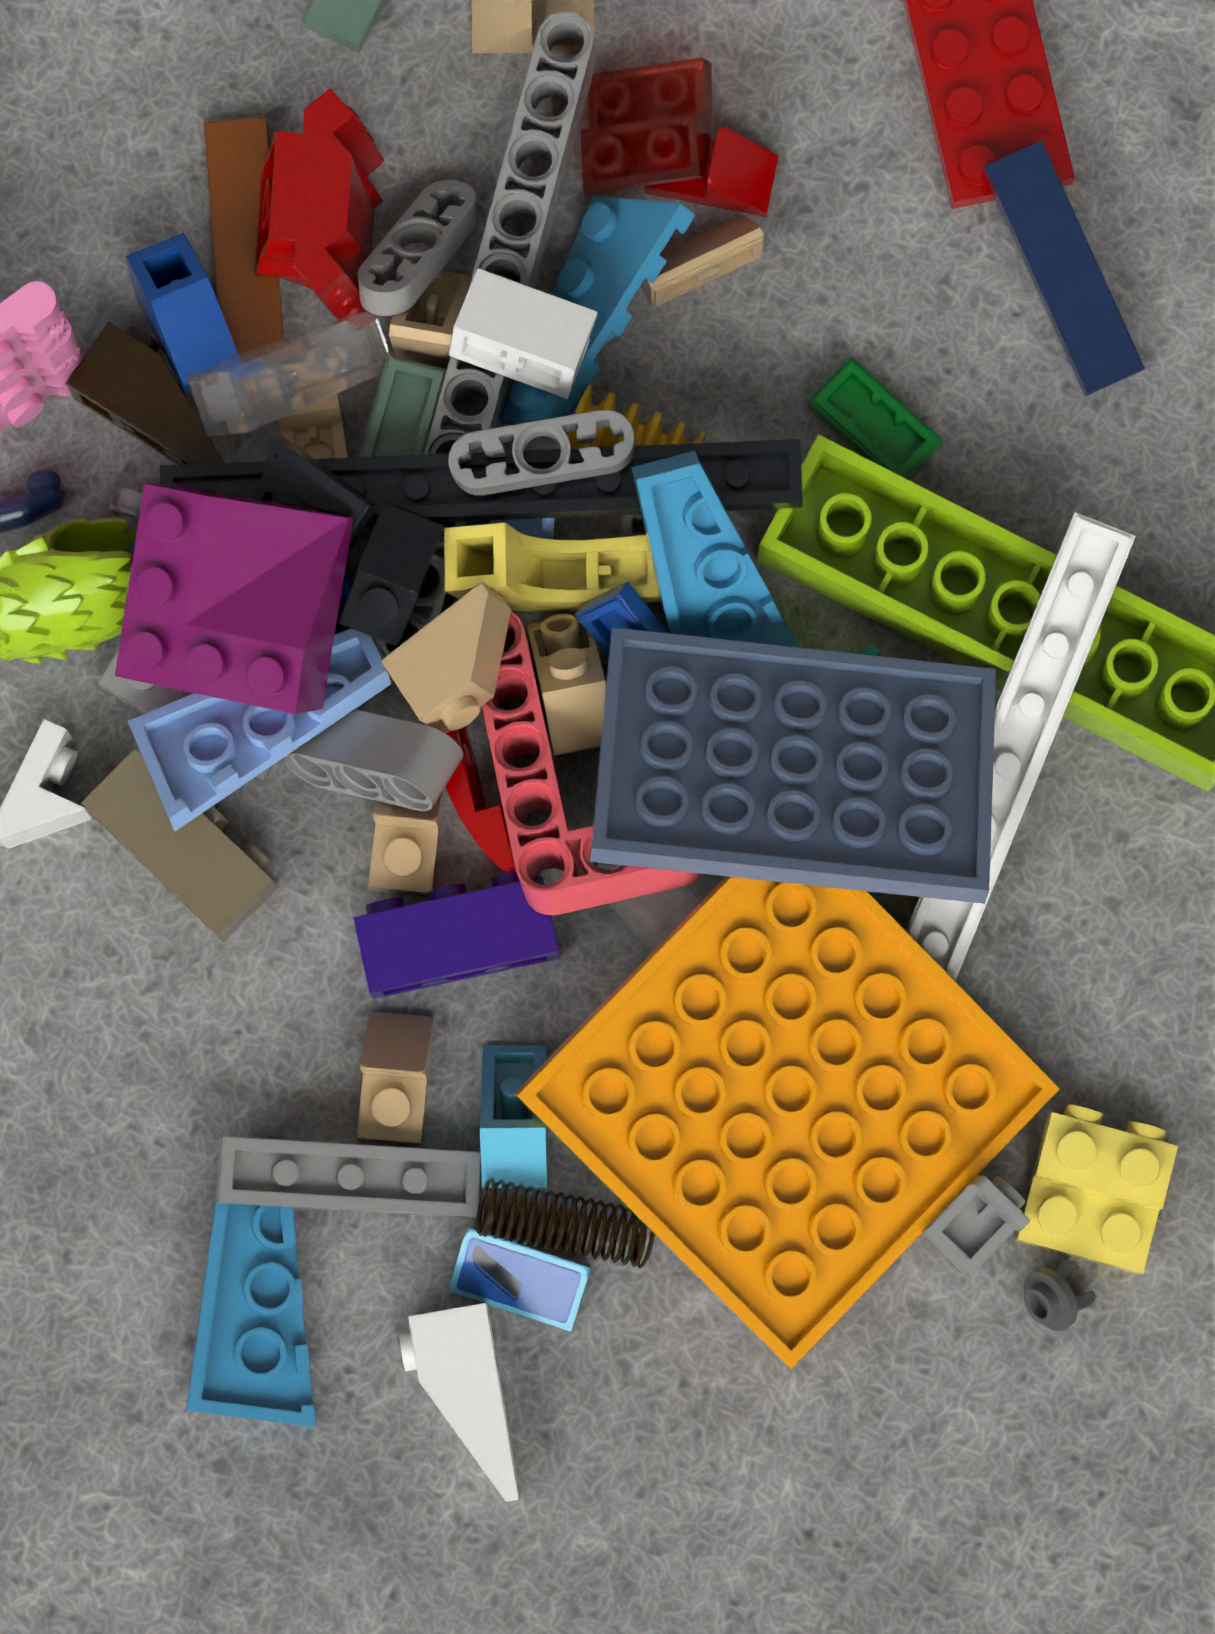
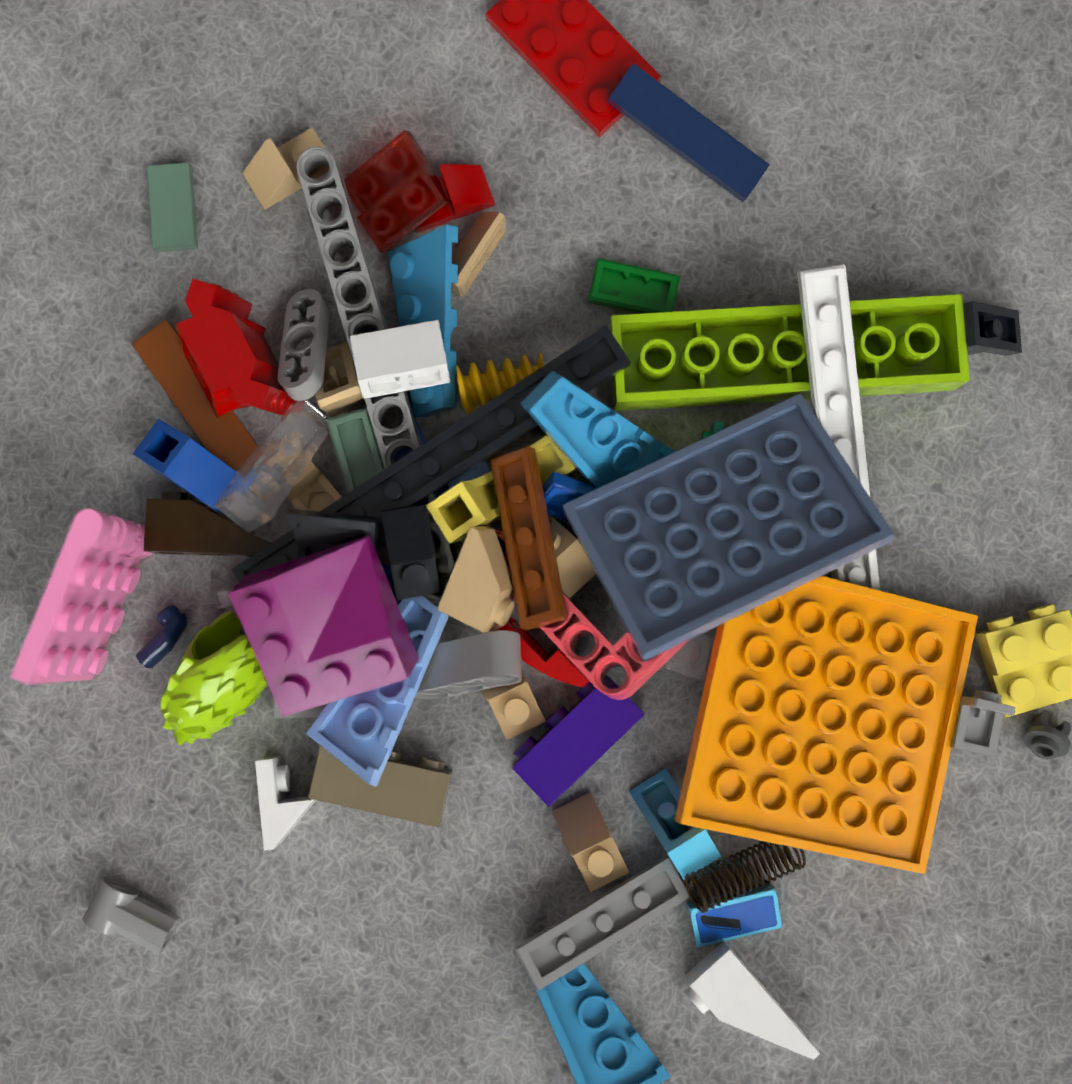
camera: 30 degrees left, 5 degrees up
(521, 434) = (490, 411): light grey beam -> none
(546, 643) = (528, 538): none -> dark orange tile

